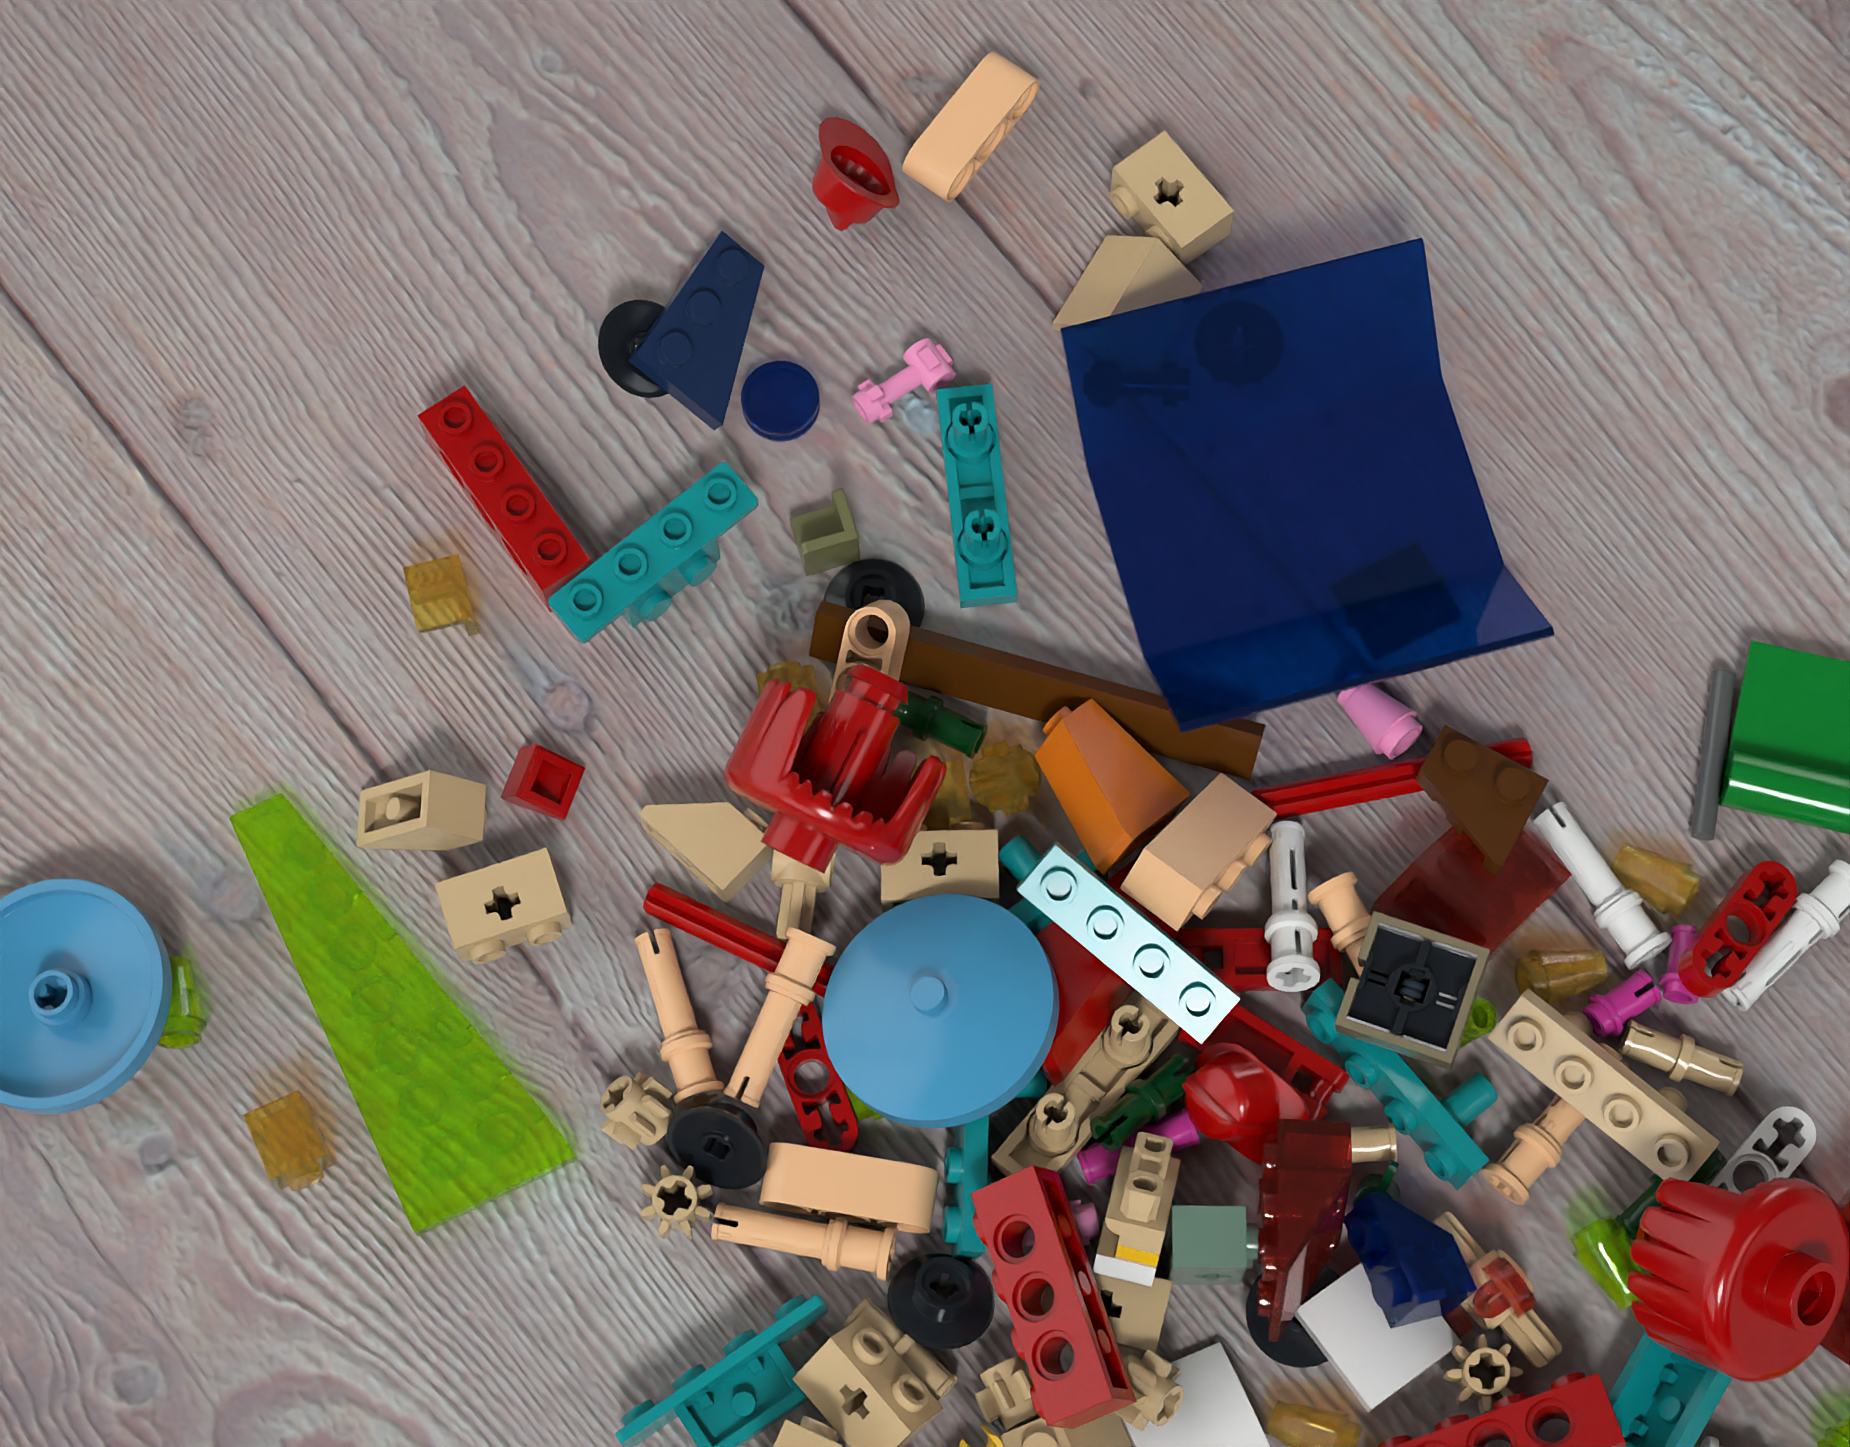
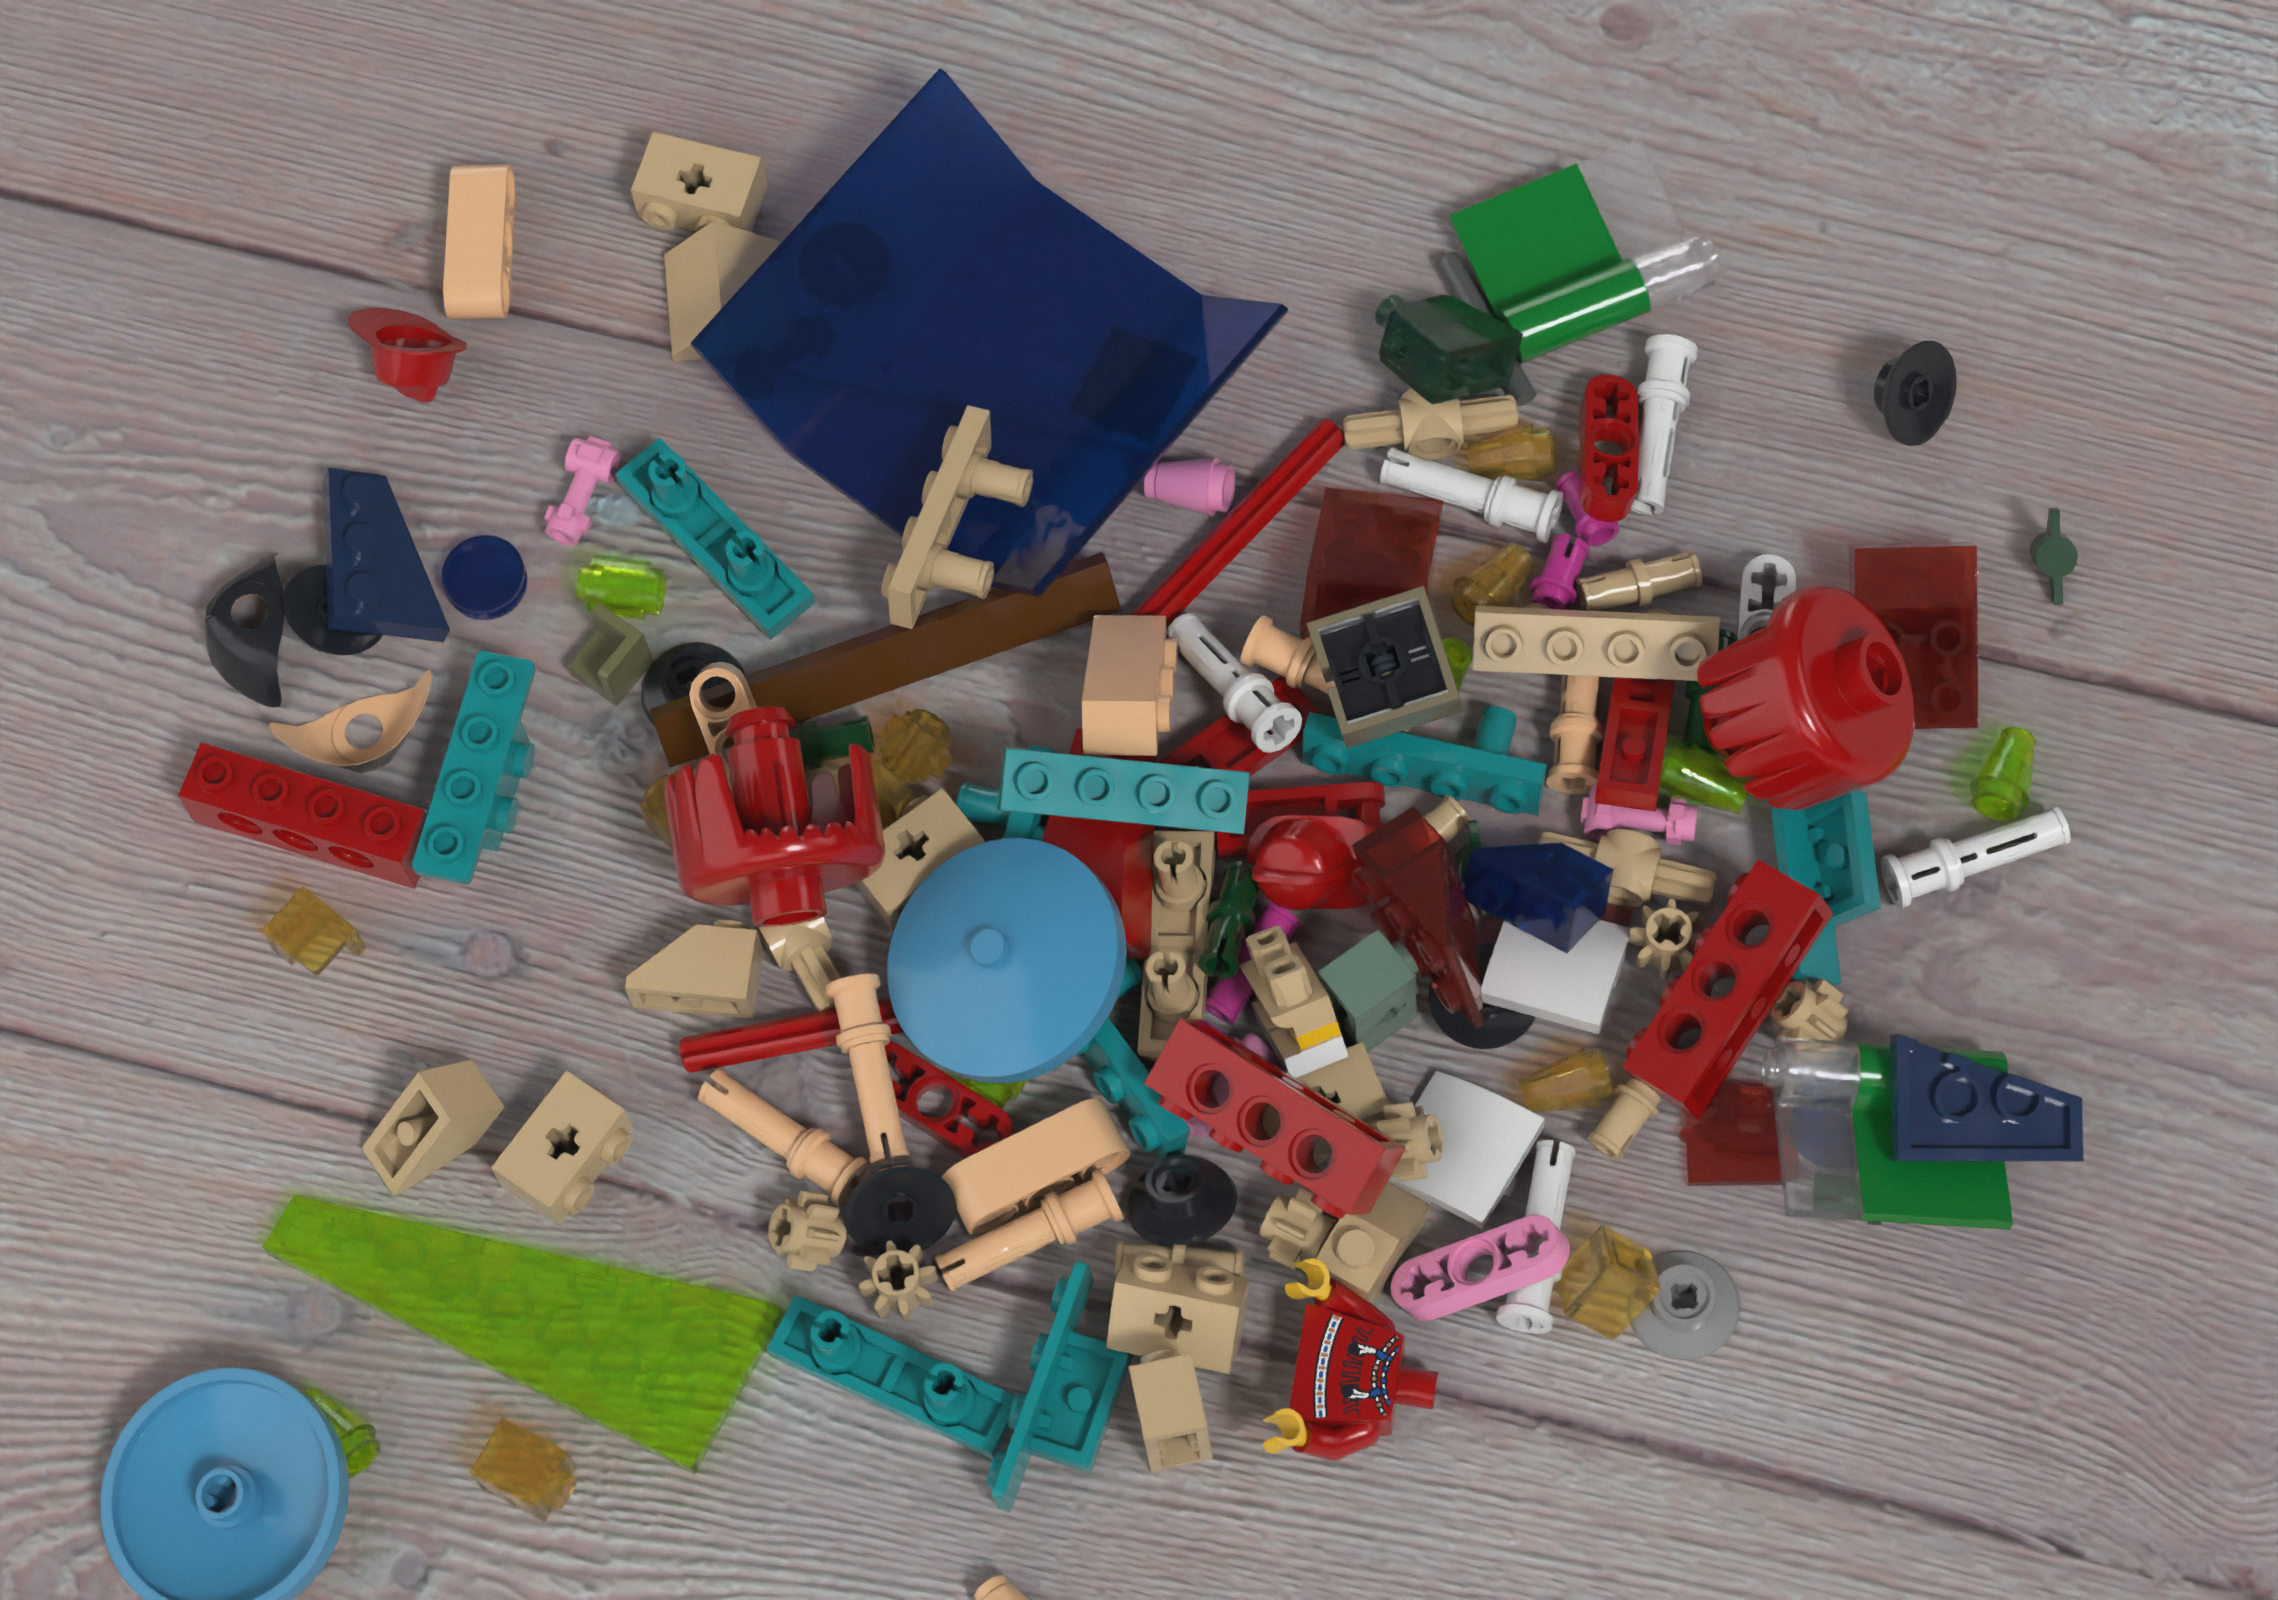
camera: 30 degrees left, 5 degrees down
(543, 781) = (516, 1028): red slope -> none
(558, 339) = (248, 656): none -> black piece
(565, 448) = (326, 738): none -> light nougat piece
(618, 1275) = (893, 1376): none -> teal plate
(875, 484) = (622, 586): none -> clear neon green brick
(1106, 783) = (1004, 687): orange slope -> none
(1173, 592) = (944, 499): none -> tan plate
(1480, 793) = (1320, 483): reddish brown wing -> none
(1508, 1285) = (1636, 848): clear red tile -> none
(1512, 1232) = (1677, 821): none -> bright pink bar
(1573, 1195) = (1635, 743): none -> red plate
(1611, 803) = (1430, 429): none -> tan axle
(1665, 751) = (1446, 347): none -> clear green torso

